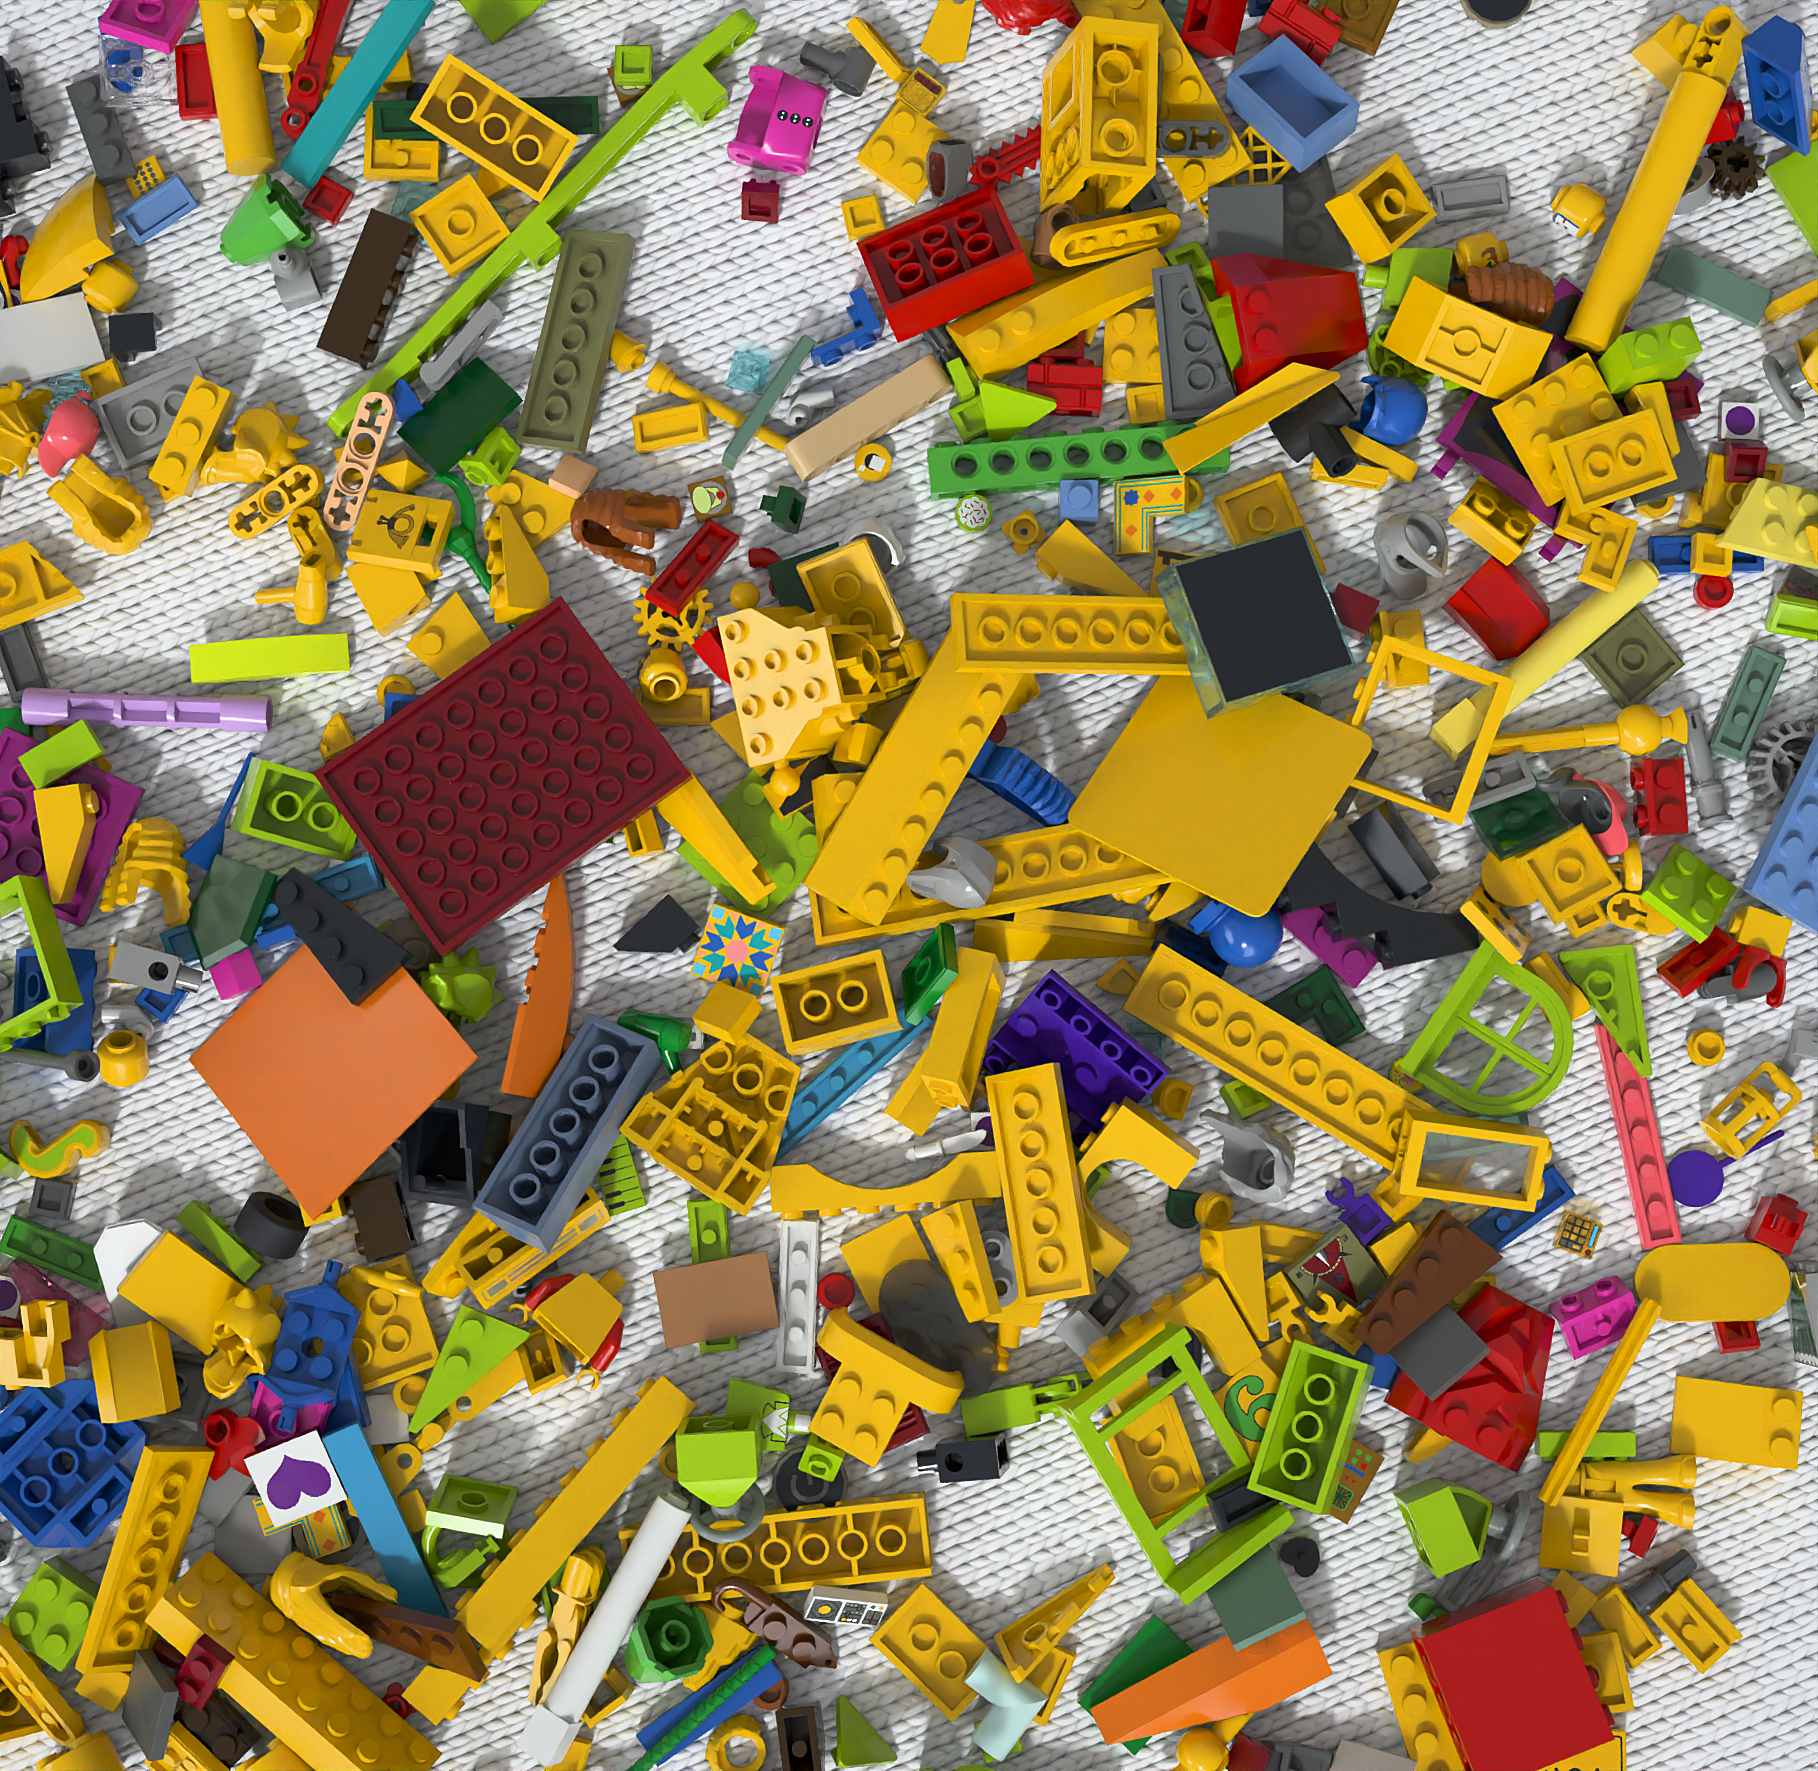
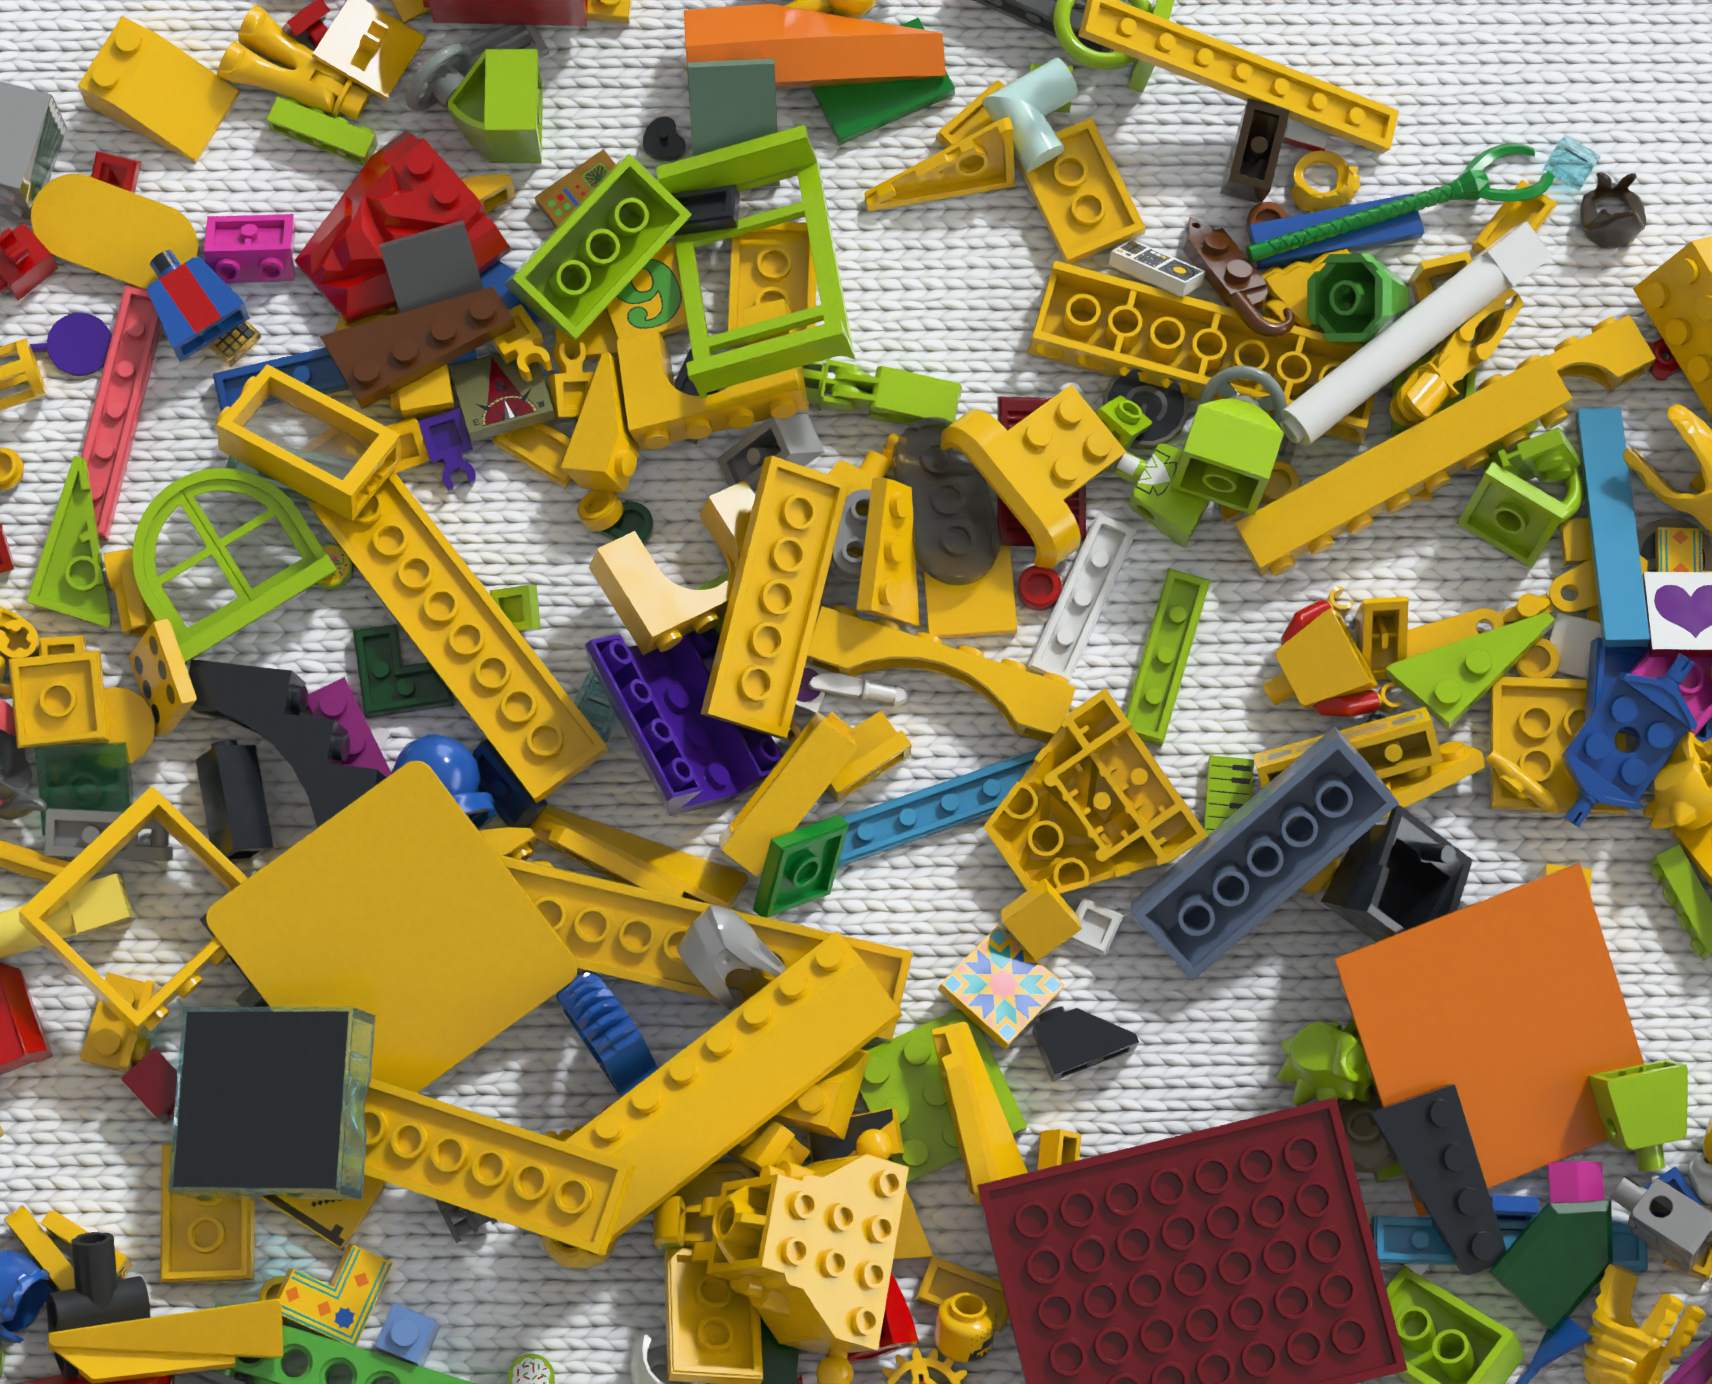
camera: 160 degrees left, 10 degrees down
(202, 1055) = (1643, 1108): none -> lime torso
(271, 1225) = (1629, 892): black tyre -> none
(380, 1217) = (1504, 850): dark brown brick -> none
(413, 1632) = (1624, 414): reddish brown wing -> none
(545, 1022) = (1240, 1001): orange wedge -> none
(667, 1031) = (1117, 927): green piece -> none
(716, 1299) = (1171, 625): medium nougat tile -> none
(836, 1003) = (916, 879): yellow brick -> none
(857, 1740) = (1195, 138): lime piece -> none
(982, 1455) = (971, 359): black torso -> none
(1027, 521) = (472, 1324): yellow plate -> none
(1081, 564) = (436, 1265): yellow slope -> none
(1119, 978) = (593, 791): yellow tile -> none
(1171, 1098) = (592, 629): yellow tile -> none
(1255, 1158) = (534, 539): light grey hair -> none
(1403, 549) = (67, 1131): light grey helmet -> none
(1424, 1606) = (560, 44): bright green hand -> none
(1600, 1401) = (287, 160): yellow axle -> none
(1620, 1243) = (193, 303): none -> torso

